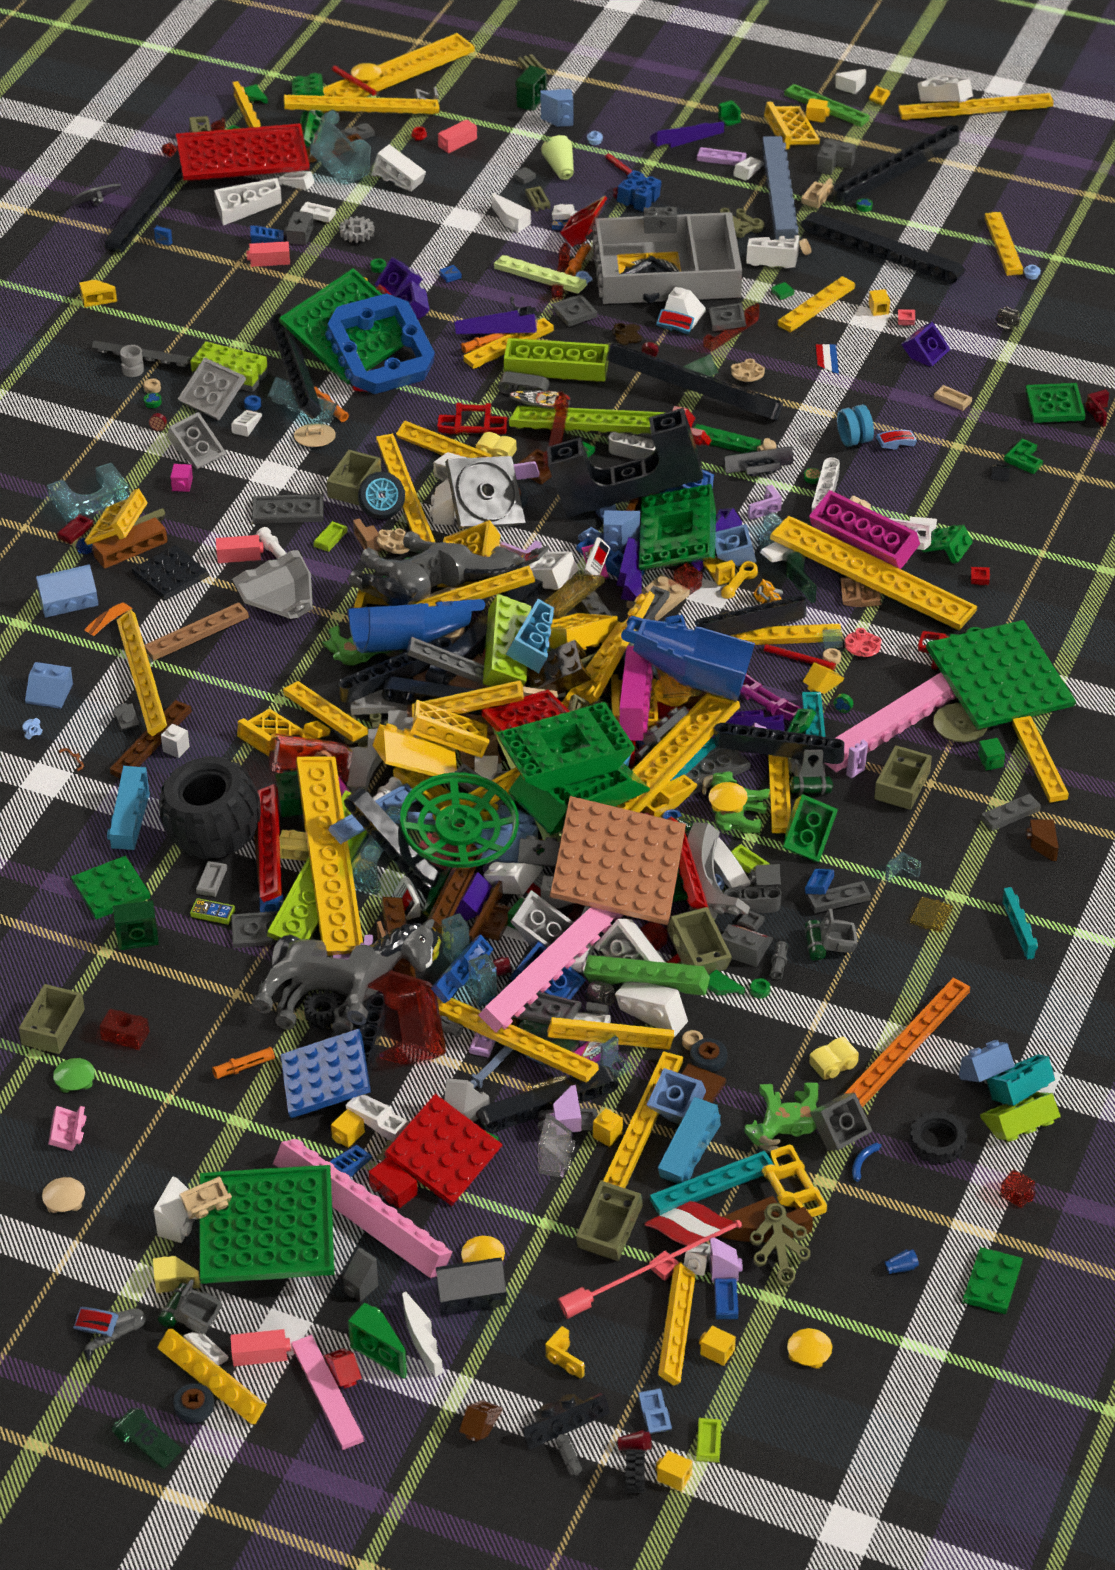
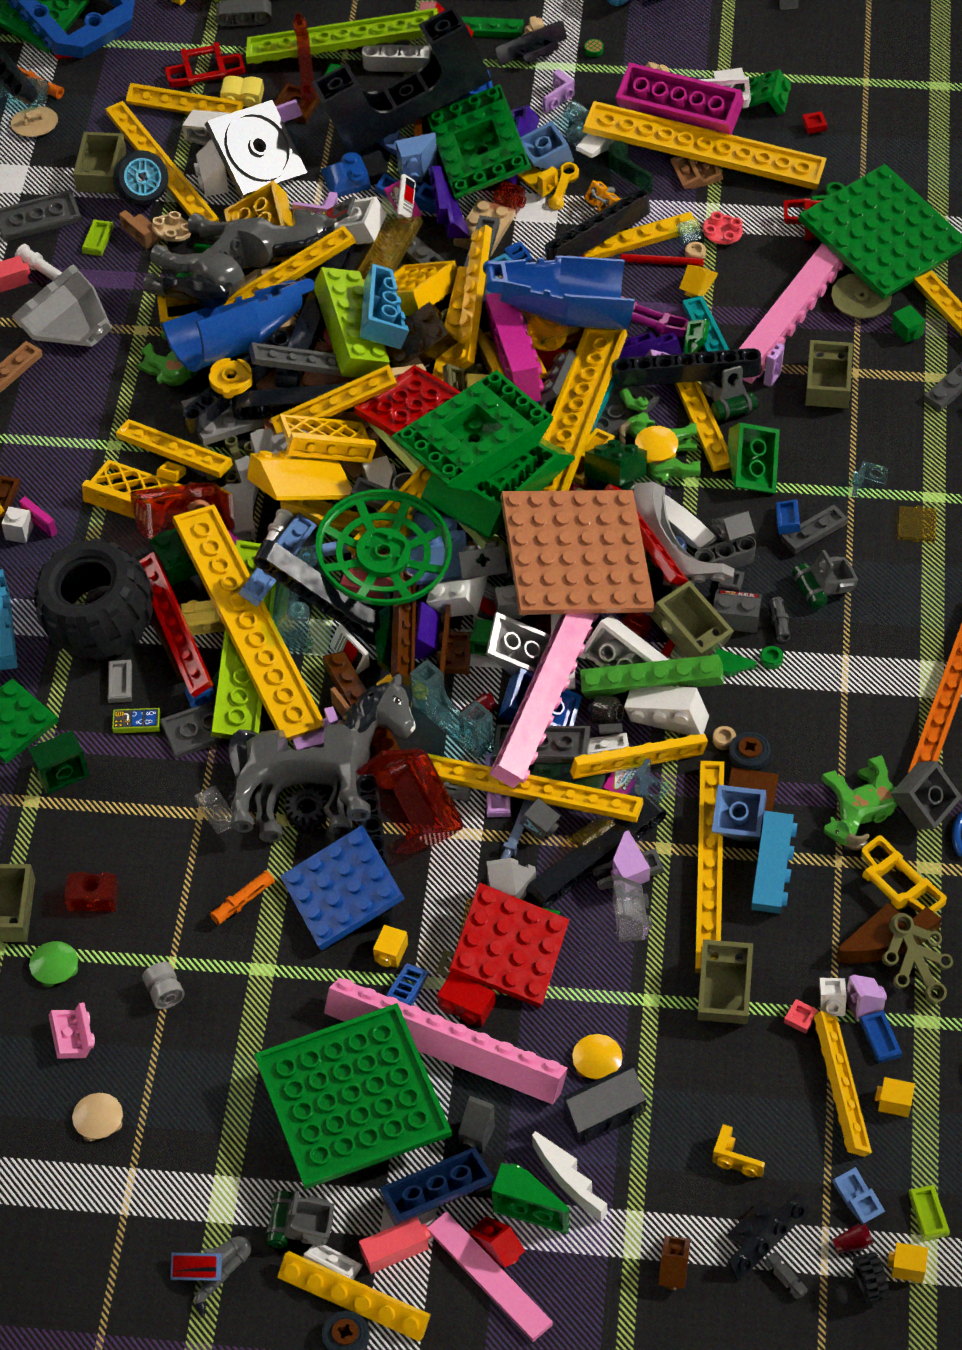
camera: 15 degrees left, 10 degrees up
(152, 1111) = (163, 985): none -> light grey wheel
(170, 1214) = (239, 1104): white slope -> none
(171, 1272) = (261, 1180): light yellow slope -> none
(195, 739) = (39, 517): none -> dark pink tile
(204, 1198) = (275, 1086): tan bracket -> none
(248, 990) = (214, 808): none -> clear plate
(308, 1311) = (435, 1186): none -> dark blue slope
(378, 1116) = (424, 925): white slope -> none
(396, 666) = (230, 386): none -> yellow plate
(458, 972) = (446, 722): blue slope -> none
(509, 1063) = (540, 820): none -> dark grey brick
(537, 398) = (268, 24): shield -> none
(558, 532) = (347, 175): none -> blue slope
(592, 533) = (382, 168): medium blue tile -> none
(607, 1127) = (676, 868): yellow brick -> none
(686, 803) = (615, 462): none -> dark green brick
(687, 1224) = (808, 962): flag -> none
(710, 1183) = (811, 904): teal plate -> none
(722, 762) = (631, 403): none -> bright green arm
(747, 858) = (702, 509): lime tile -> none
(827, 480) = (614, 58): white beam -> none
(834, 1058) = (884, 720): light yellow brick -> none
(843, 703) = (730, 302): tile -> none

